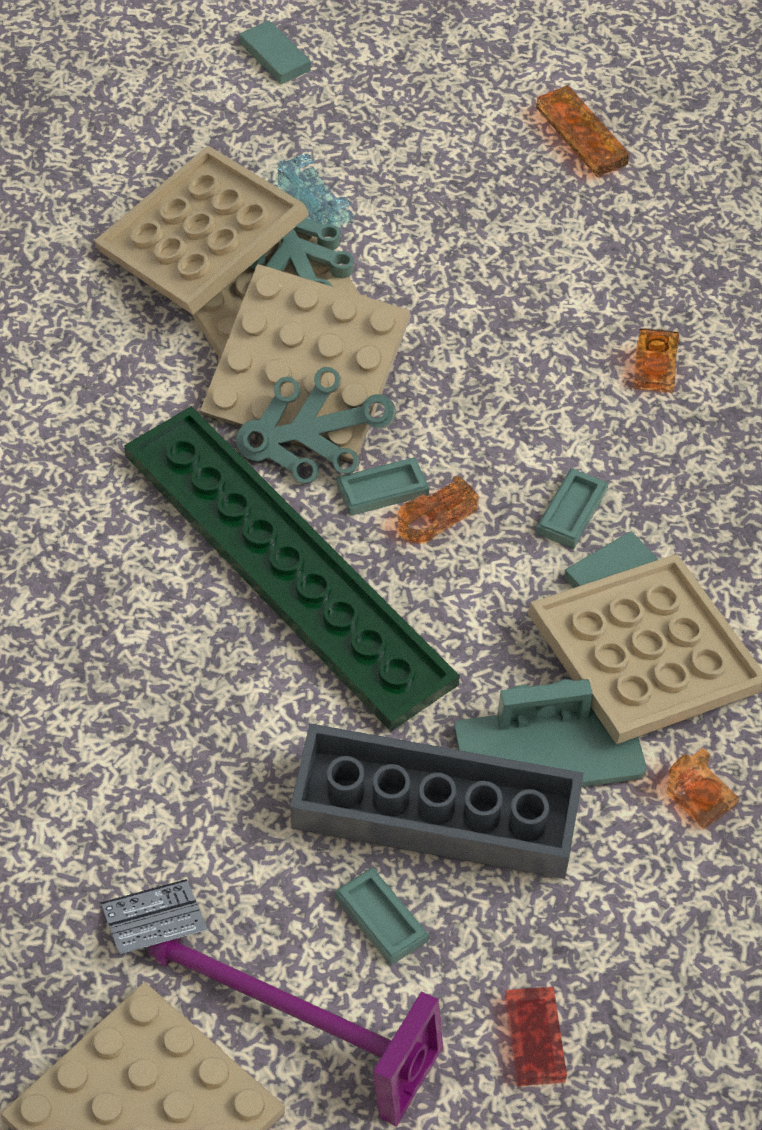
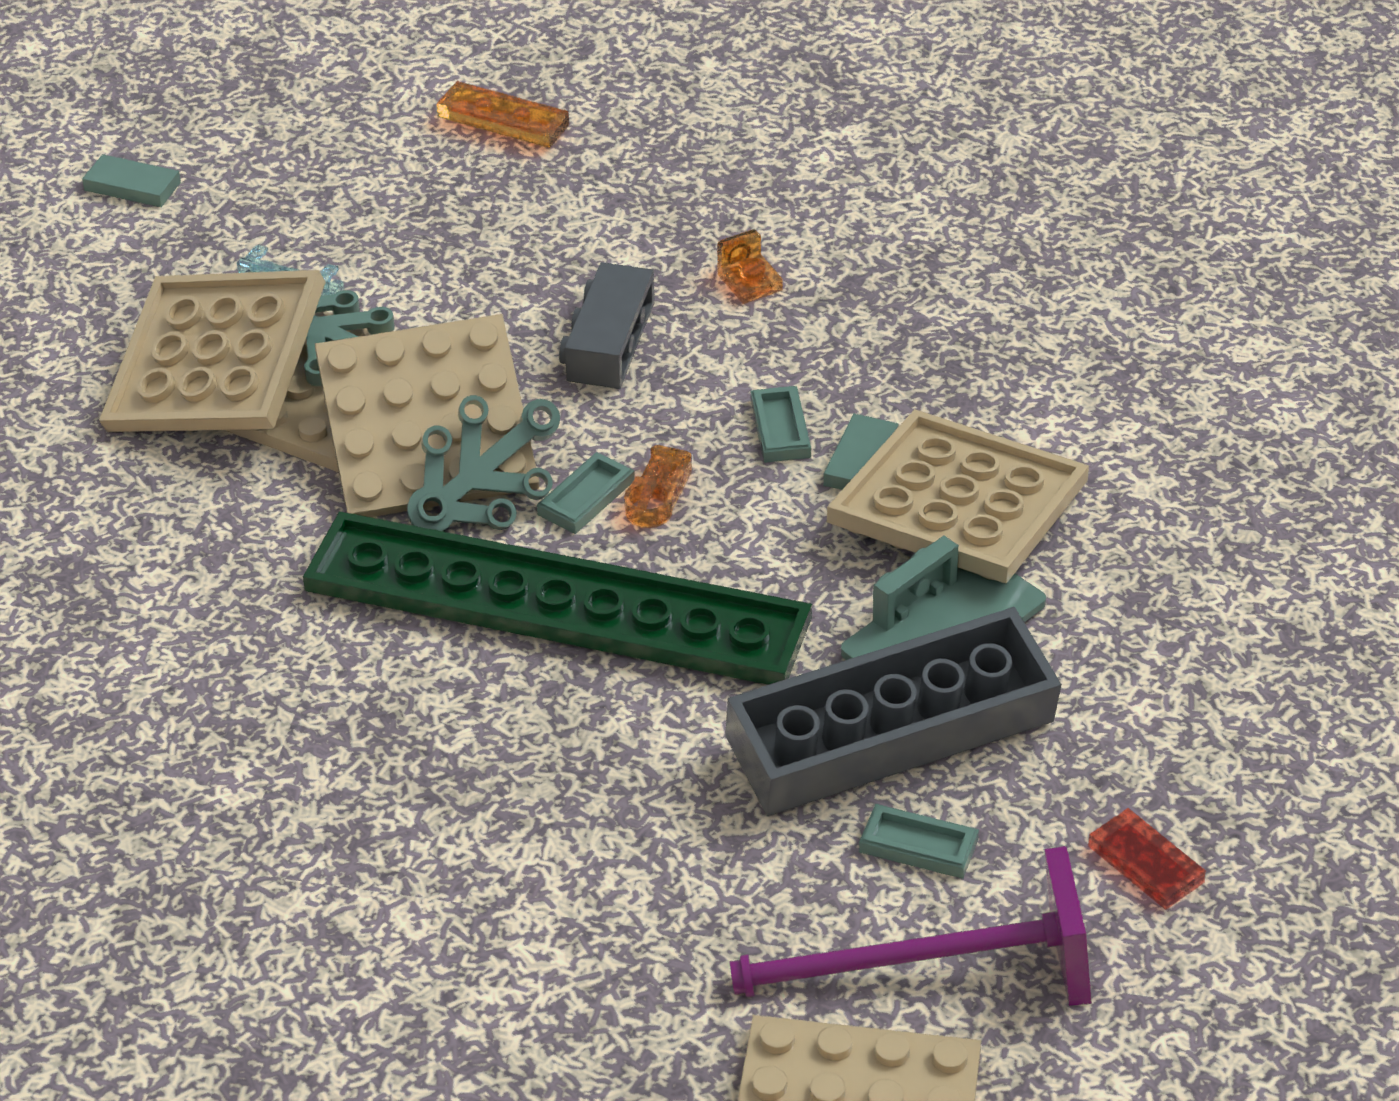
camera: 30 degrees left, 10 degrees down
(153, 916) = (709, 956): light grey sticker -> none
(509, 355) = (608, 325): none -> dark grey brick
(699, 789) = (1104, 587): clear orange bracket -> none

